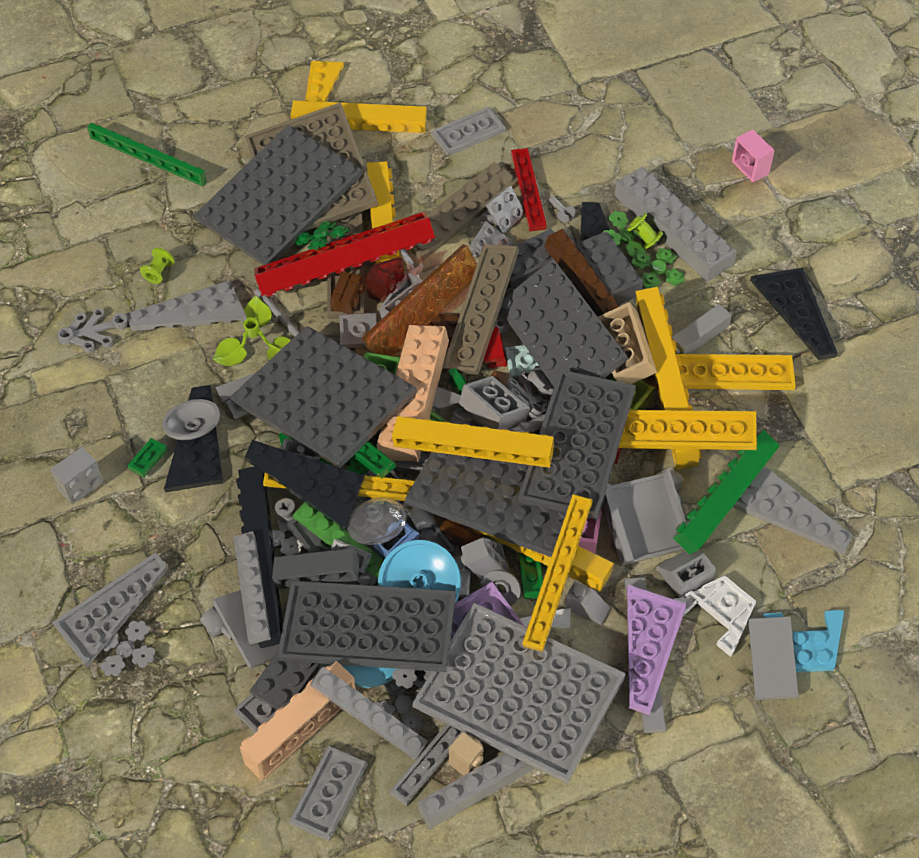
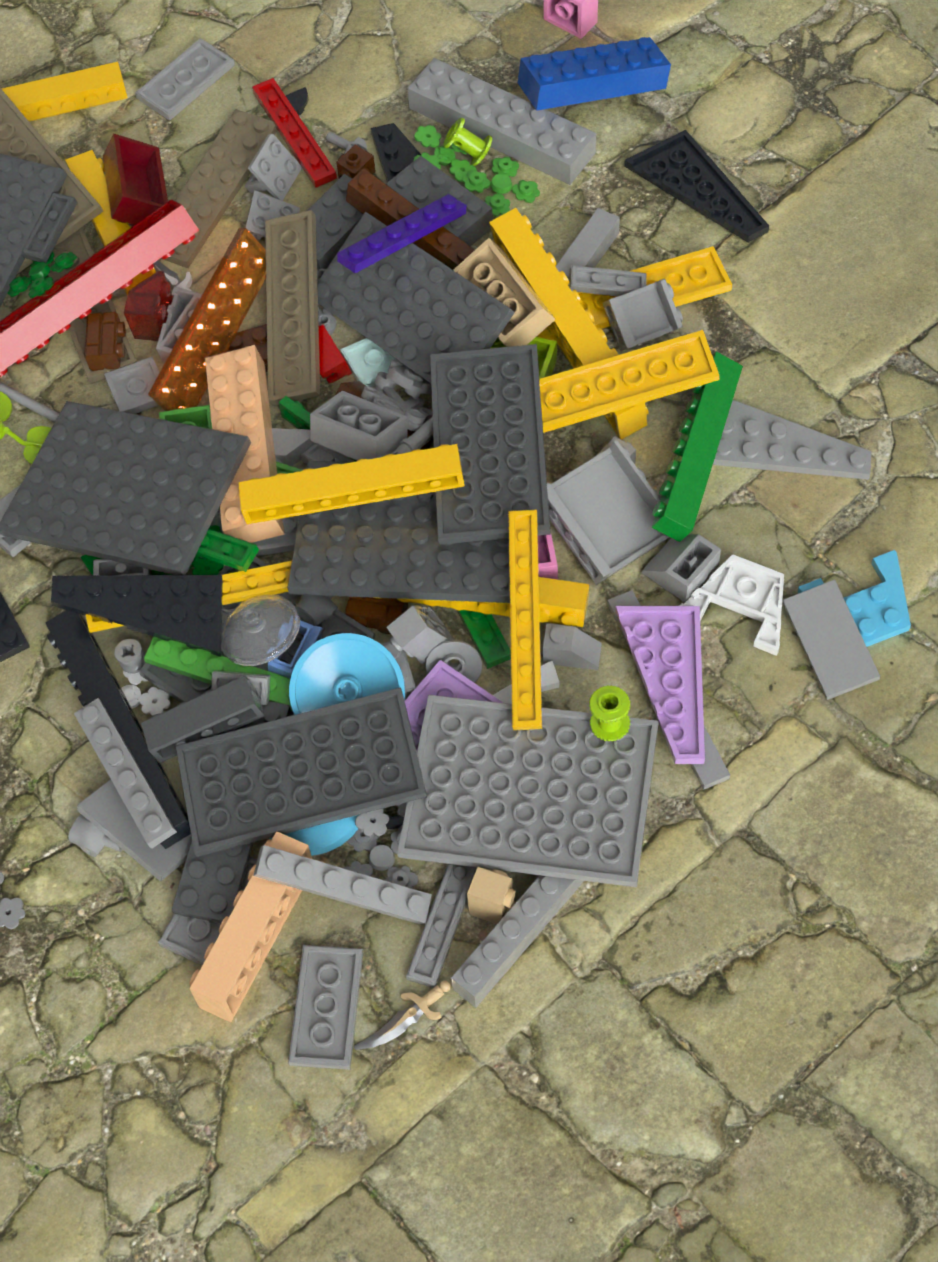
camera: 15 degrees left, 5 degrees up
(338, 205) = (49, 227): none -> dark grey tile
(380, 818) = (408, 1016): none -> piece
(406, 189) = (133, 179): none -> dark red piece
(539, 168) = (298, 100): none -> black tile
(562, 221) = (354, 161): none -> reddish brown brick
(571, 281) = (401, 233): none -> dark purple plate
(592, 656) = (609, 713): none -> lime hose
(706, 357) = (604, 280): none -> light grey tile
(723, 388) = (643, 314): none -> light grey panel
(750, 209) = (593, 73): none -> blue brick

